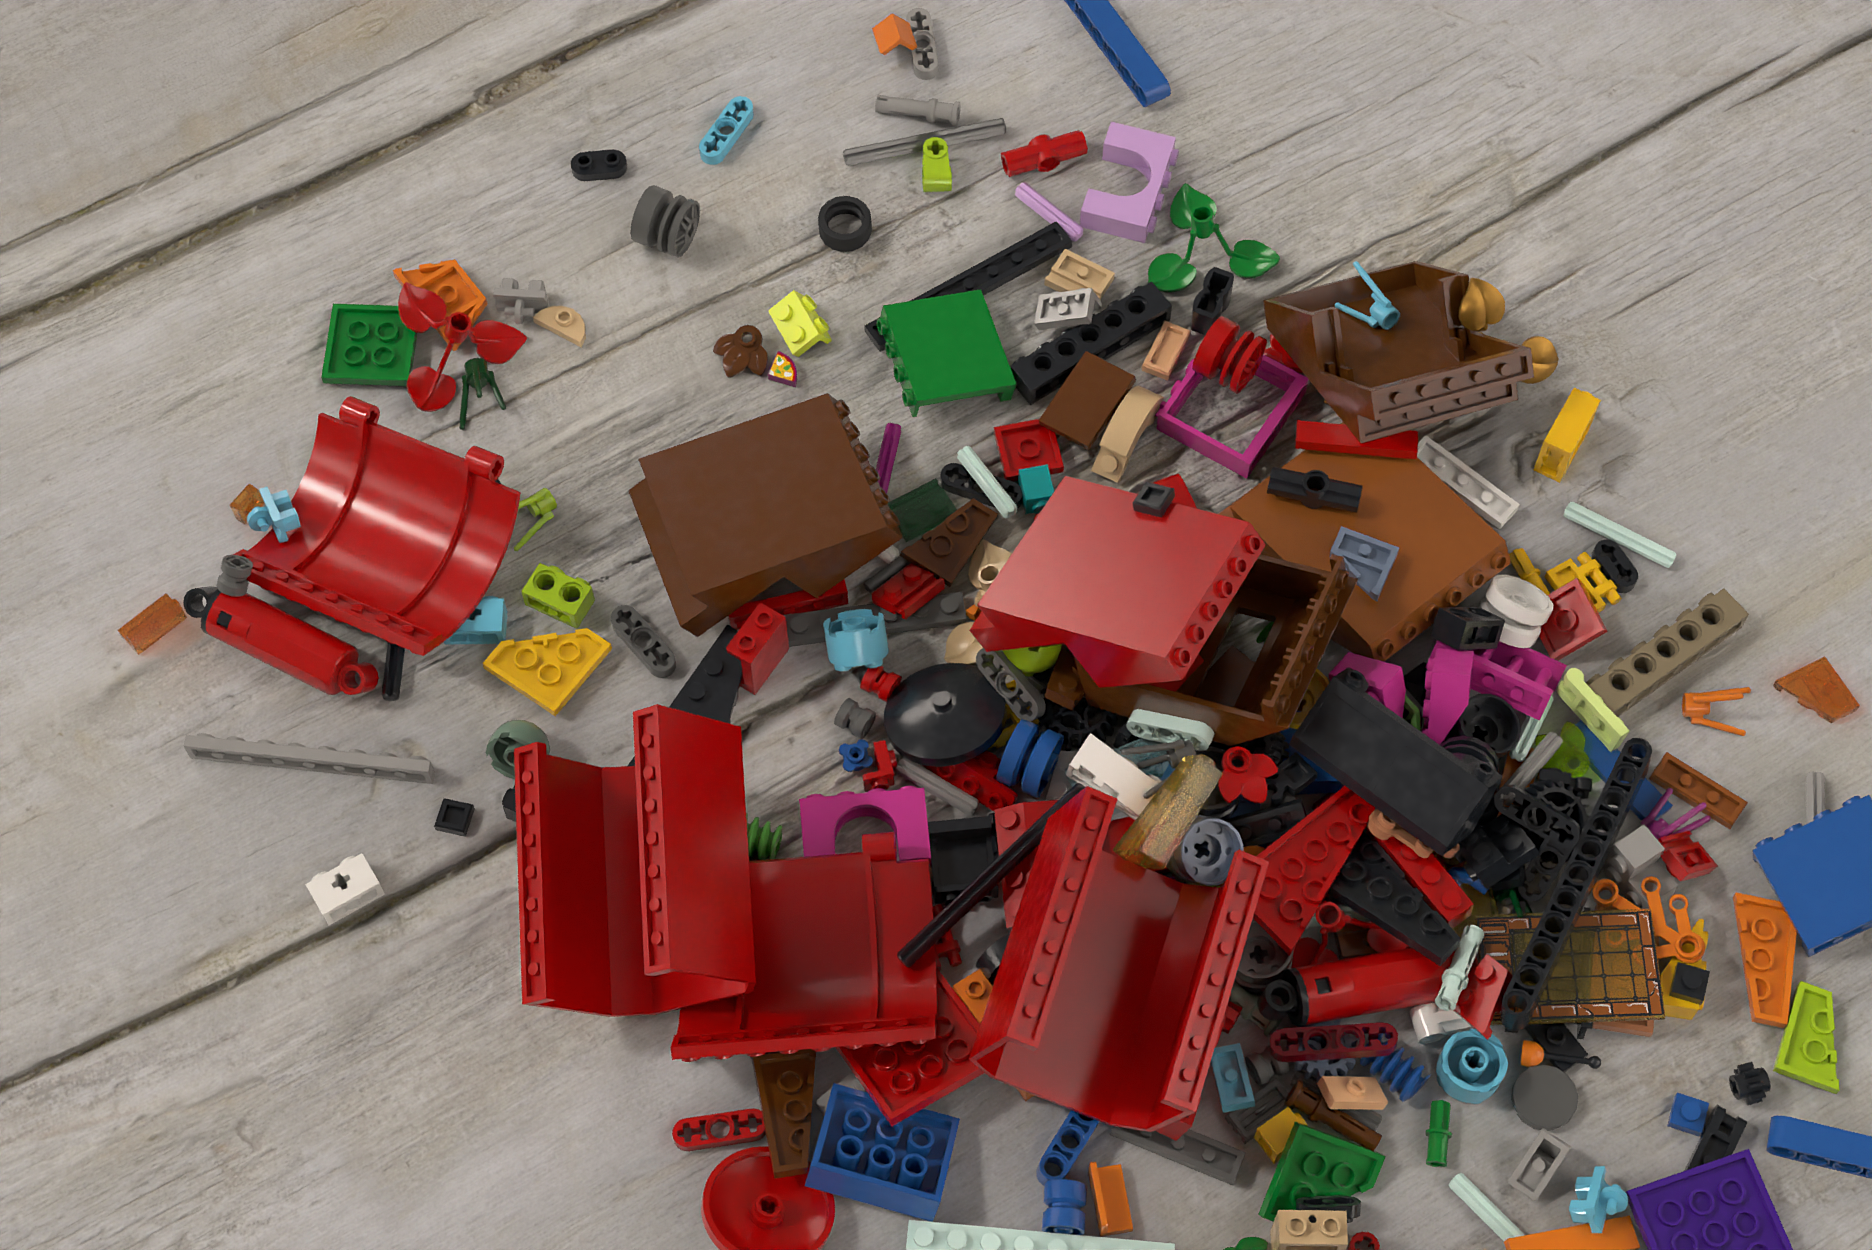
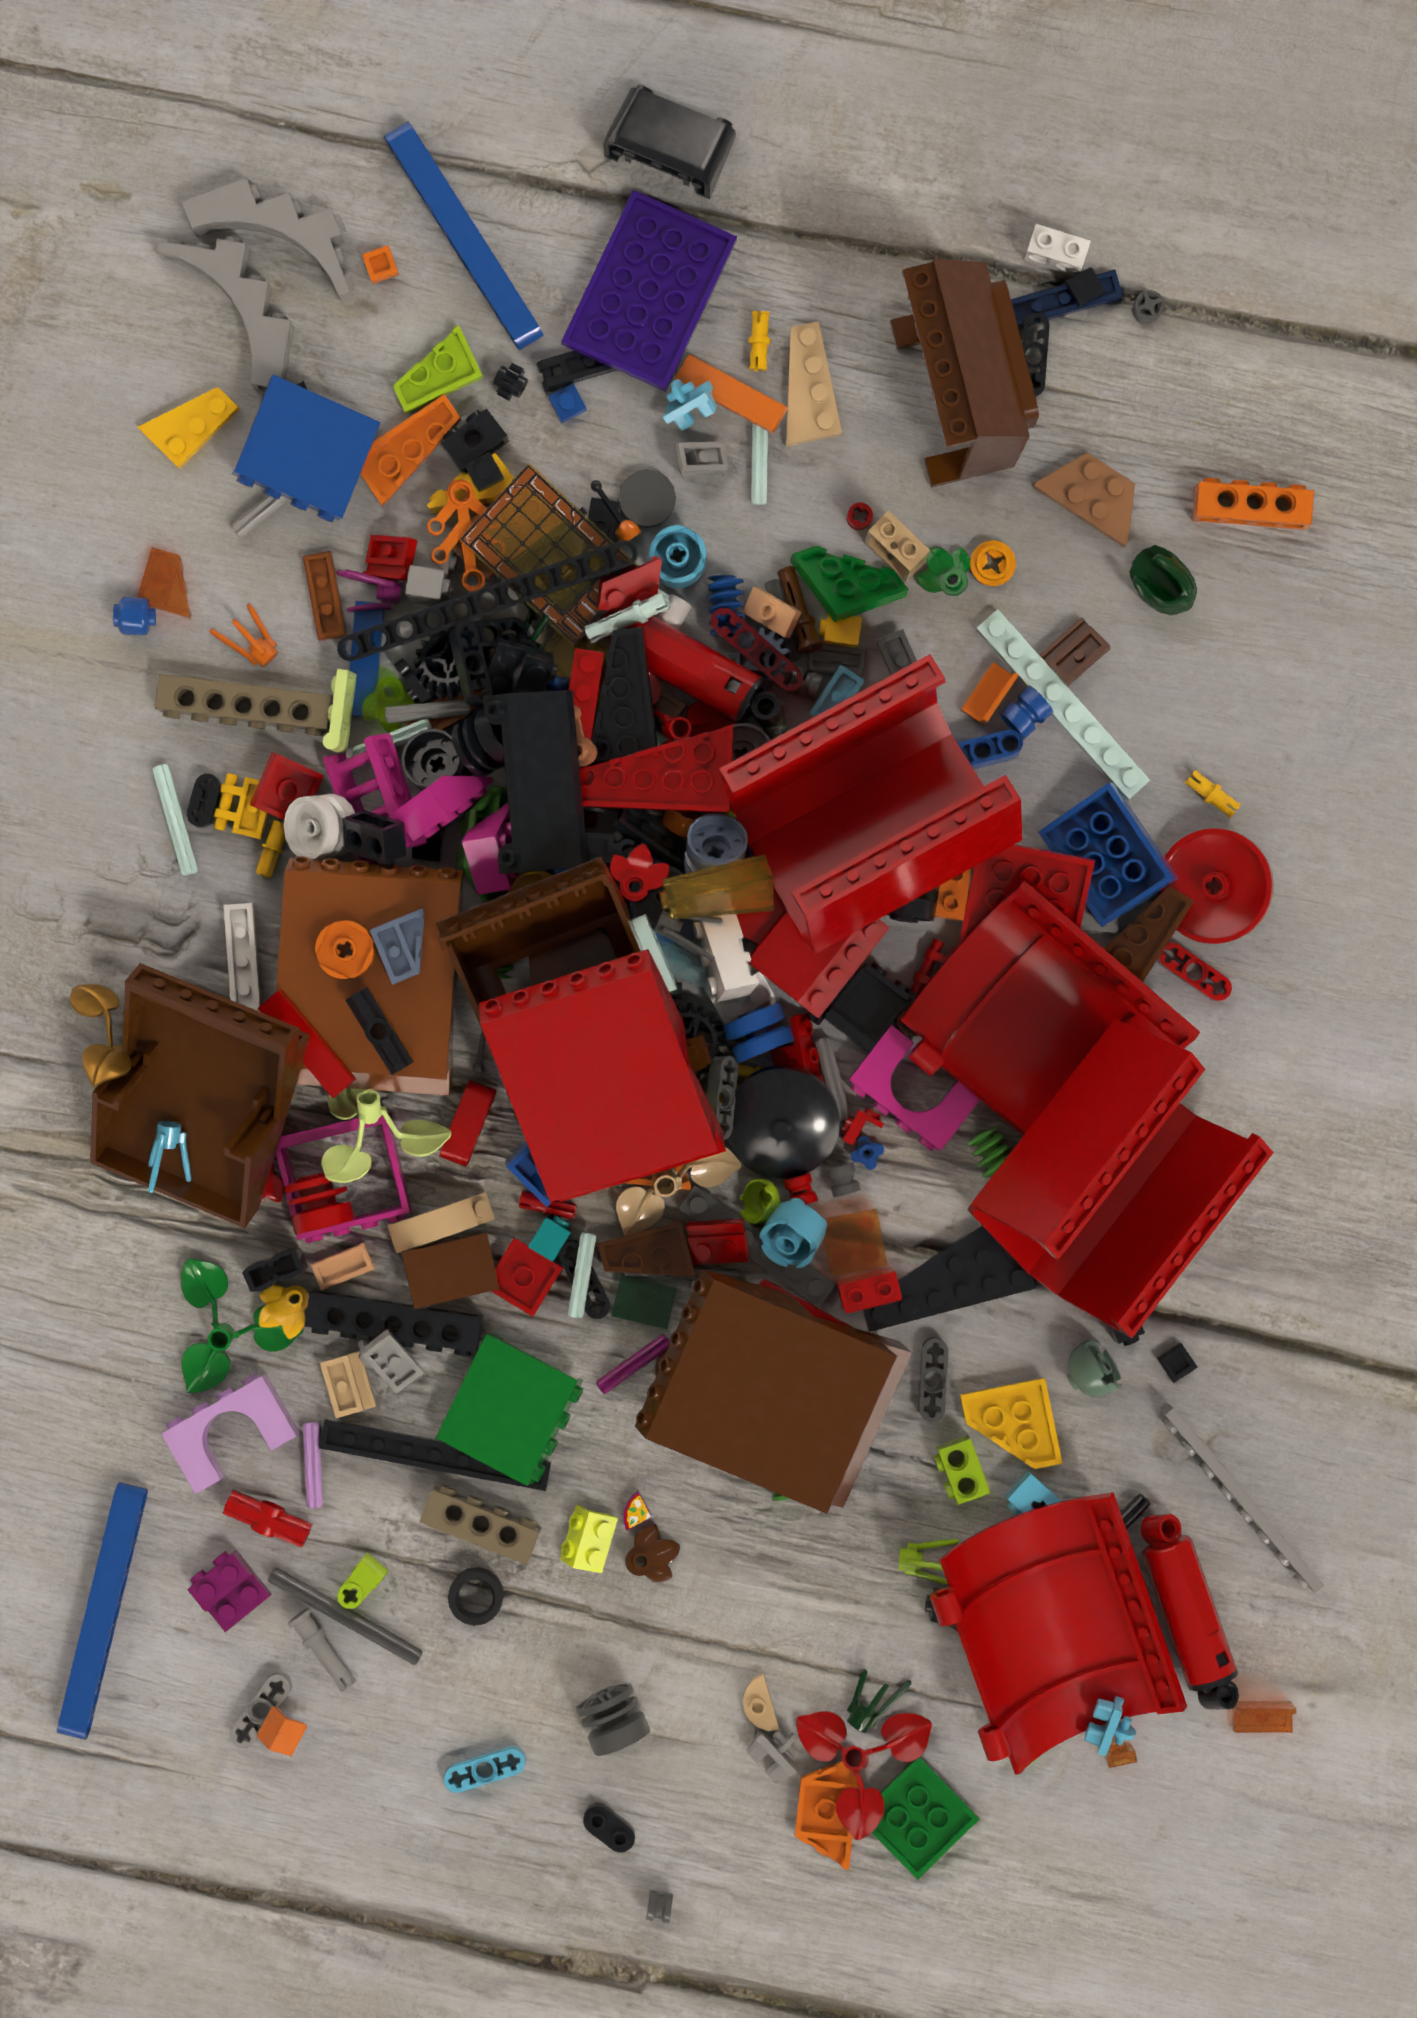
camera: 135 degrees left, 25 degrees up
(234, 576) = (1189, 1687): dark grey wheel -> none
(338, 903) = (1314, 1370): white brick -> none
(513, 144) = (659, 1906): none -> dark grey wheel
(802, 682) = (854, 1242): none -> clear orange plate
(897, 257) = (437, 1517): none -> dark tan brick
(903, 648) = (759, 1200): none -> lime hair
(981, 885) = (928, 967): black axle -> none
(1024, 93) = (228, 1589): none -> magenta plate
(1153, 499) = (520, 1112): black tile -> none
(1177, 282) = (281, 1312): none -> yellow plate
(1237, 393) = (347, 1164): none -> yellowish green plant
(1331, 1203) = (863, 555): black plate -> none
(1401, 505) = (329, 956): none -> orange plate
(1438, 1133) = (739, 539): green axle -> none
(1567, 434) = (135, 921): yellow window -> none
(1715, 1026) = (478, 423): none -> black brick
(1814, 642) = (134, 616): none -> blue head

